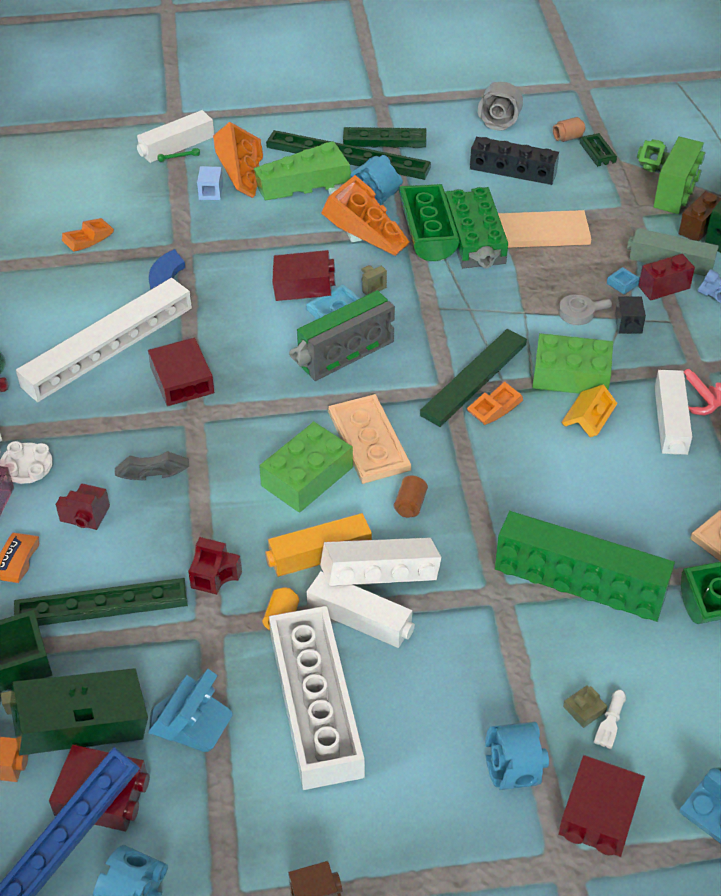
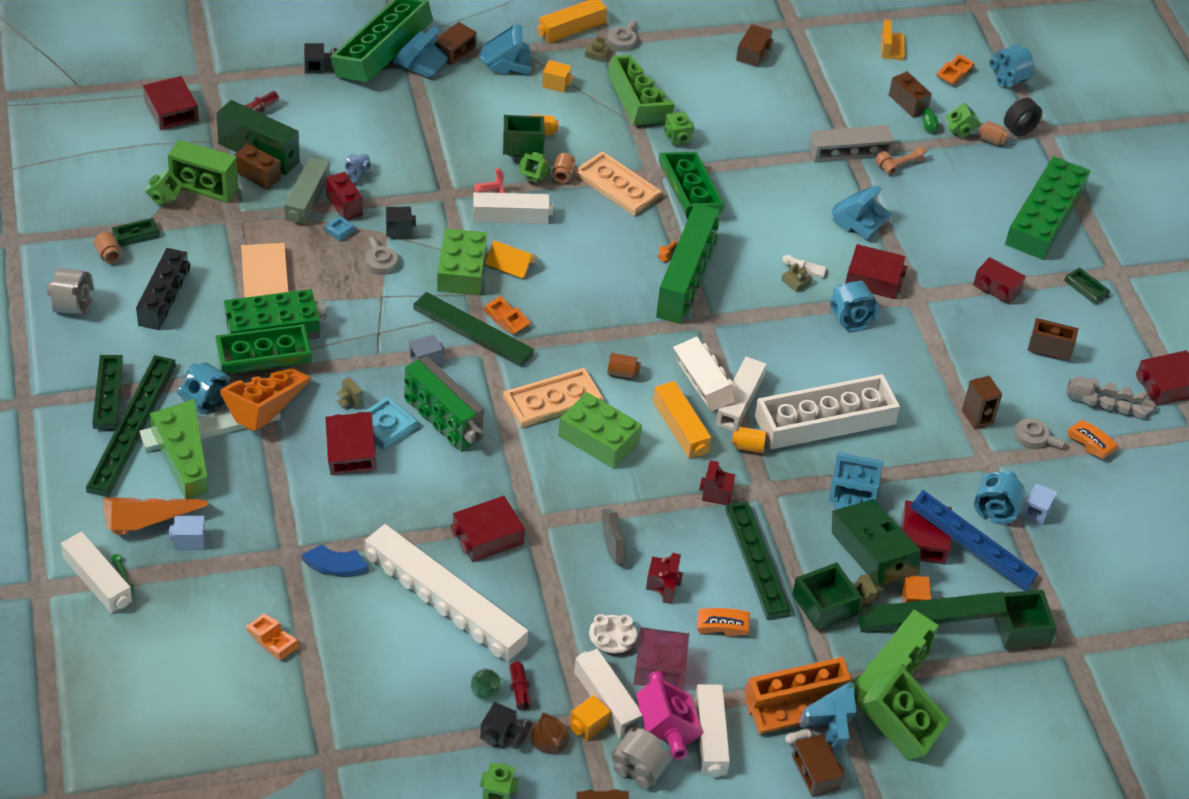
camera: 100 degrees left, 0 degrees up
(430, 333) = (426, 346): none -> sand blue brick

